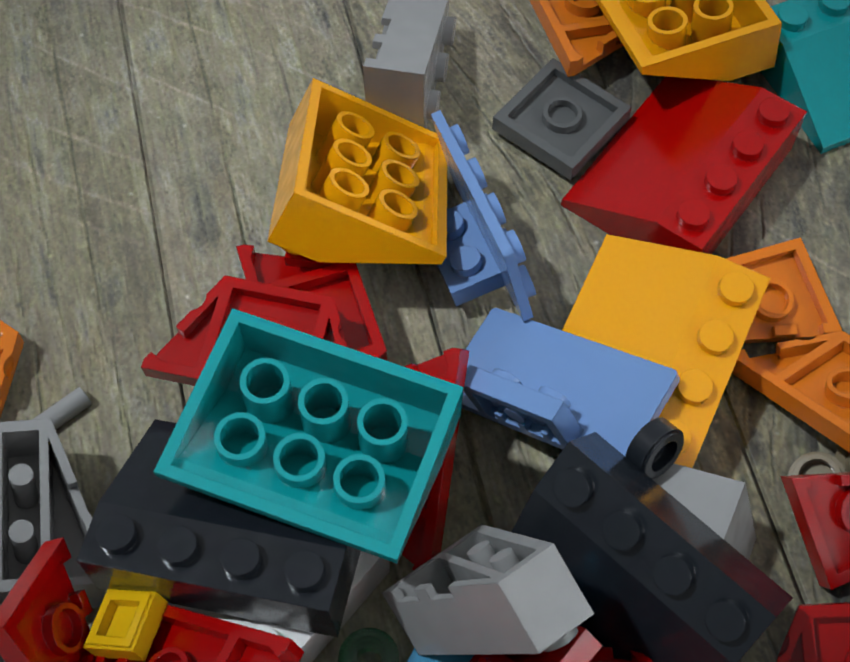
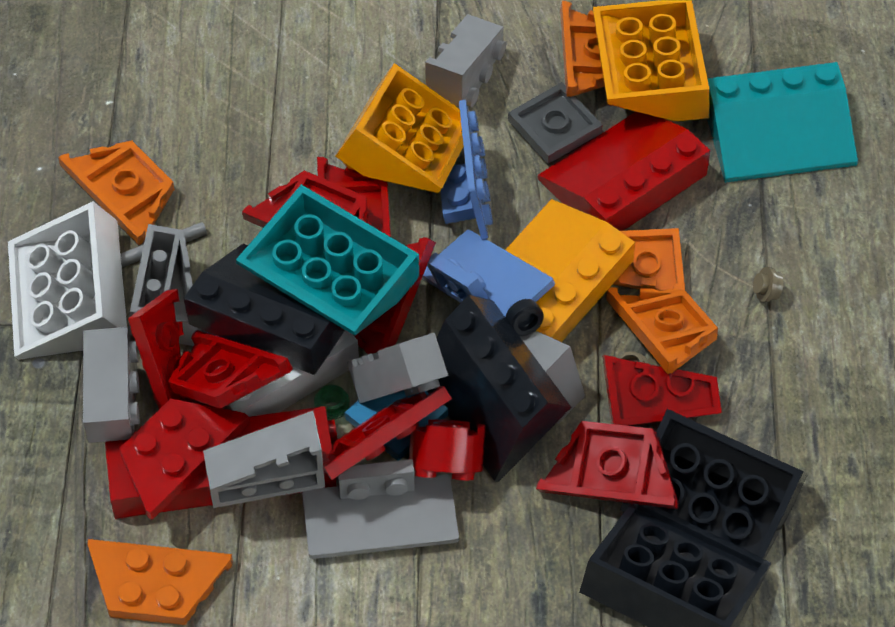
camera: 15 degrees right, 5 degrees down
(126, 624) = (200, 343): yellow tile -> none

